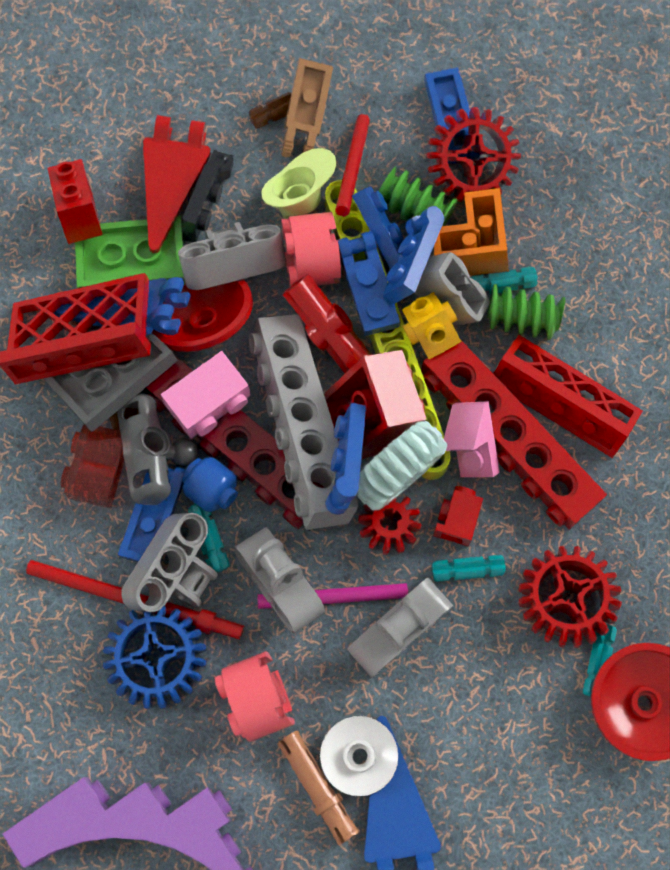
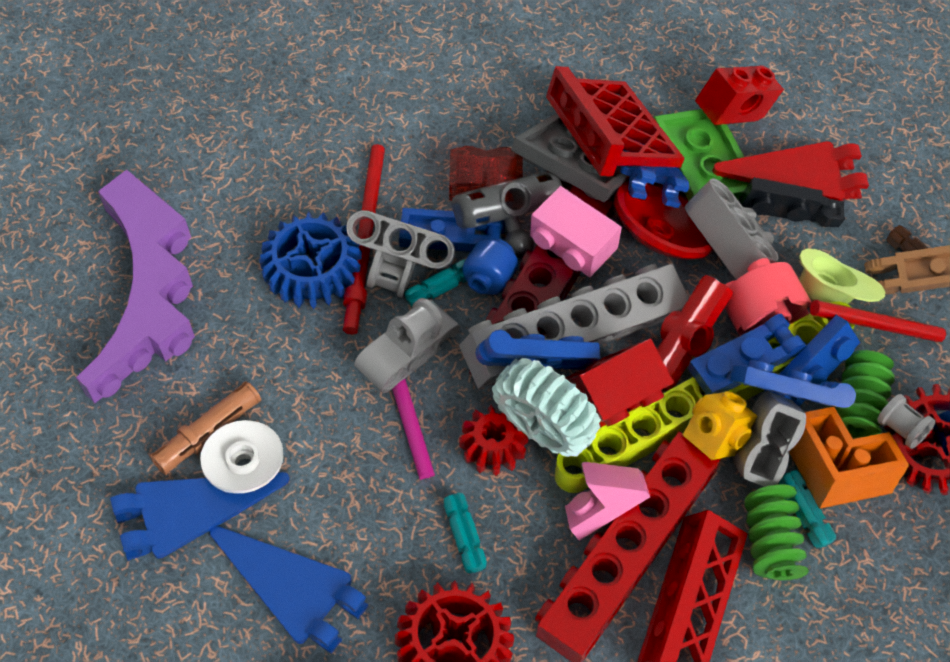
camera: 80 degrees right, 15 degrees down
(255, 697) = (283, 345): coral brick -> none
(399, 627) = (386, 470): light grey piece -> none
(459, 516) = (518, 508): red brick -> none
(463, 176) = (906, 421): none -> light grey bush
(488, 730) = (293, 586): none -> blue flag

